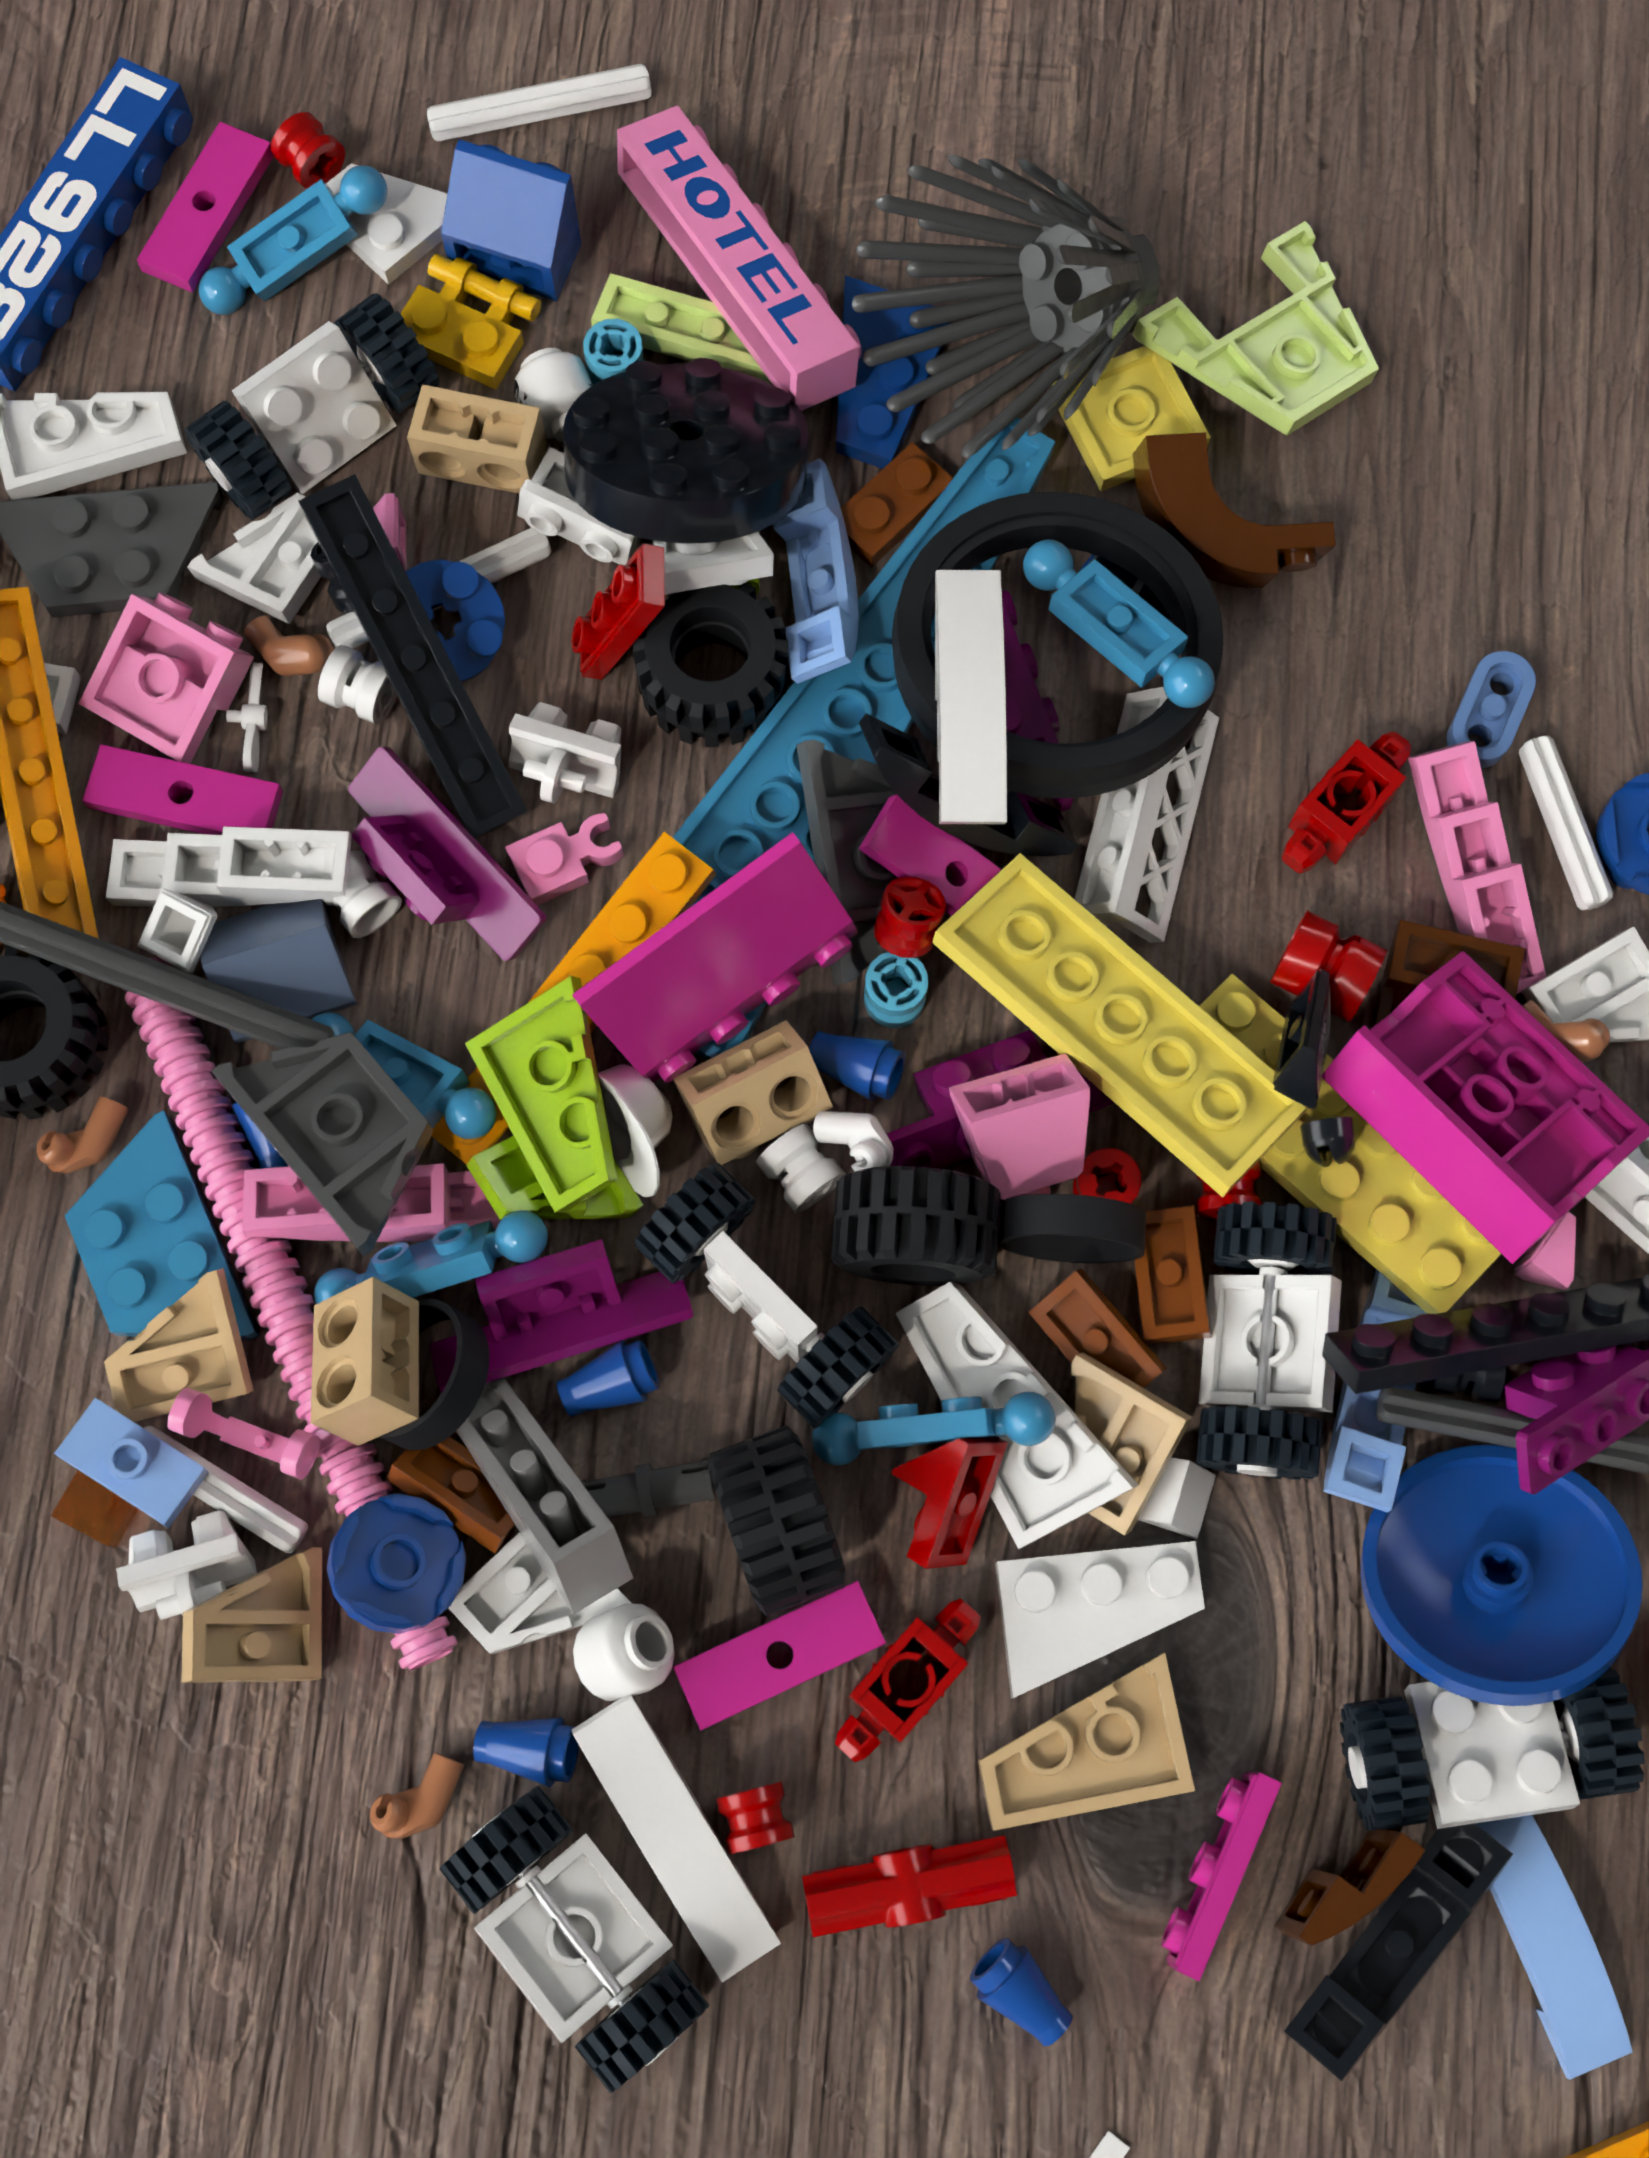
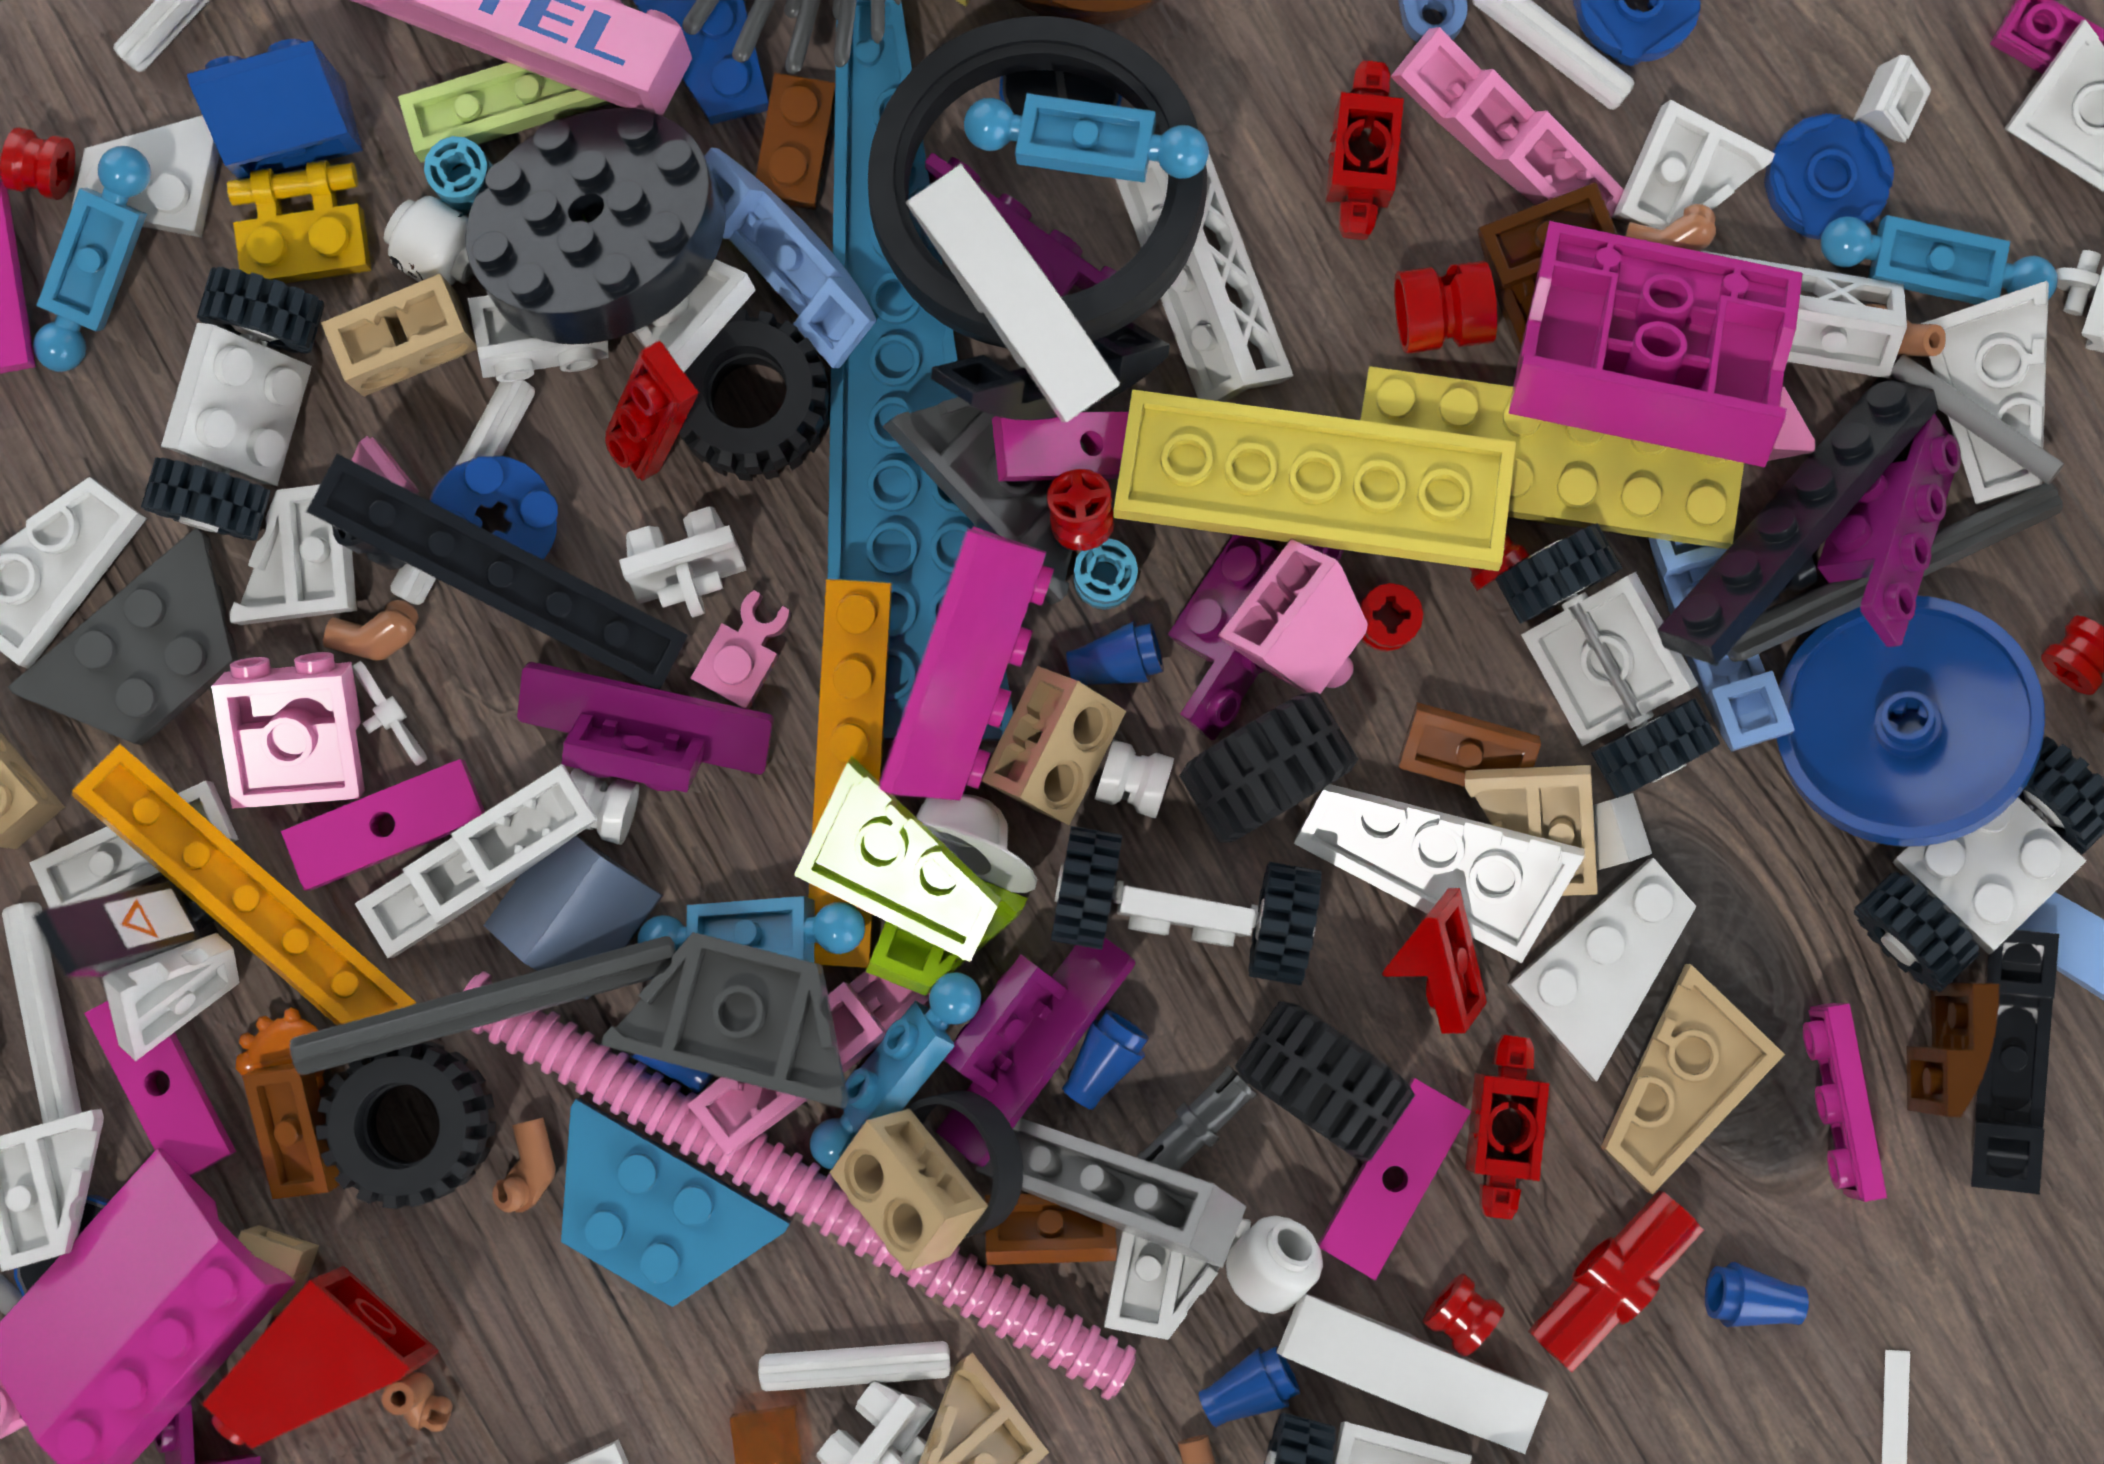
camera: 35 degrees left, 10 degrees up
(131, 1462) = (774, 1398): light blue plate -> none
(178, 929) = (477, 943): white slope -> none
(182, 1347) = (748, 1286): tan wing -> none
(194, 1414) = (799, 1324): bright pink piece -> none
(356, 684) = (459, 625): white wheel -> none
(396, 1563) = (1048, 1326): blue tile -> none
(860, 1132) = (1168, 719): white arm -> none
(1025, 1419) = (1464, 863): dark azure plate -> none
(1072, 1228) = (1393, 679): black tyre -> none
(1172, 1278) = (1490, 657): dark orange plate -> none
(1305, 1042) = (1475, 393): black slope -> none
(1329, 1138) = (1550, 461): black hinge -> none

